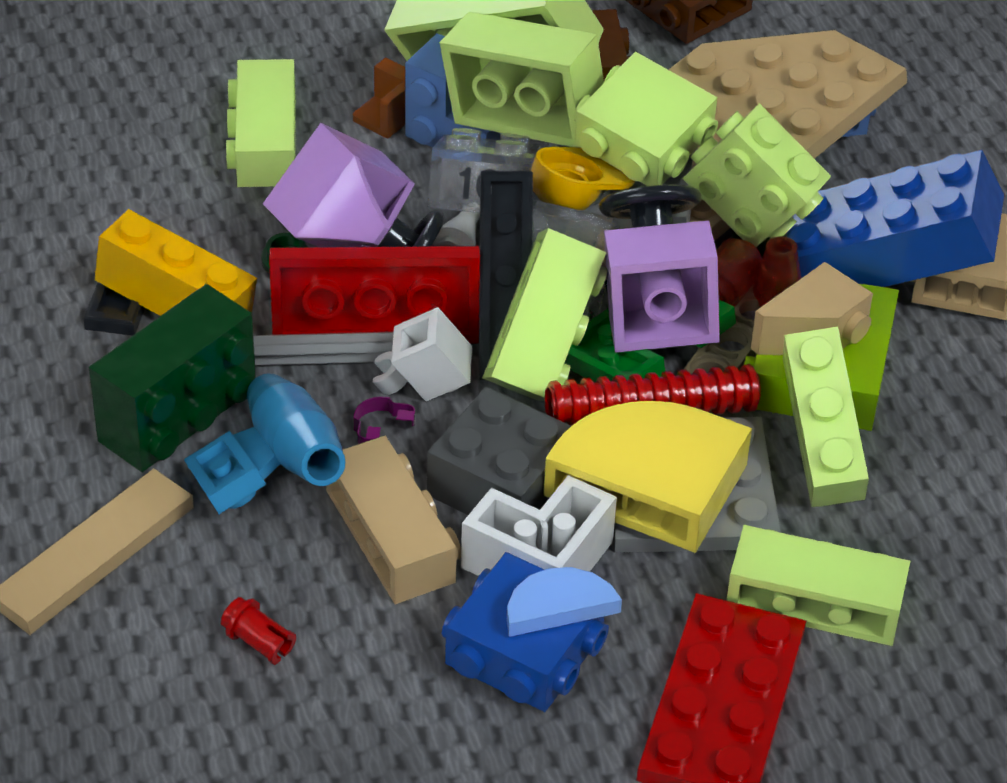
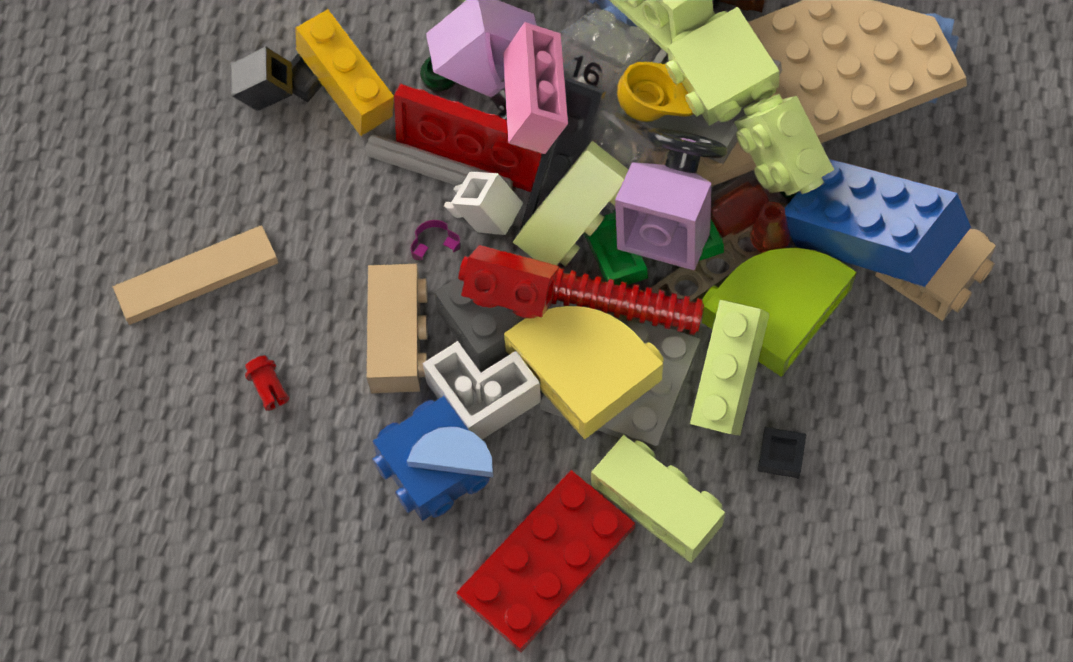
camera: 30 degrees right, 20 degrees up
(69, 317) = (261, 79): none -> black brick
(173, 377) = (300, 161): dark green brick -> none
(286, 431) = (339, 245): dark azure plate -> none
(446, 195) = (535, 88): none -> bright pink brick
(525, 394) = (508, 281): none -> red brick
(813, 303) = (767, 279): tan slope -> none
(926, 495) = (781, 452): none -> black plate

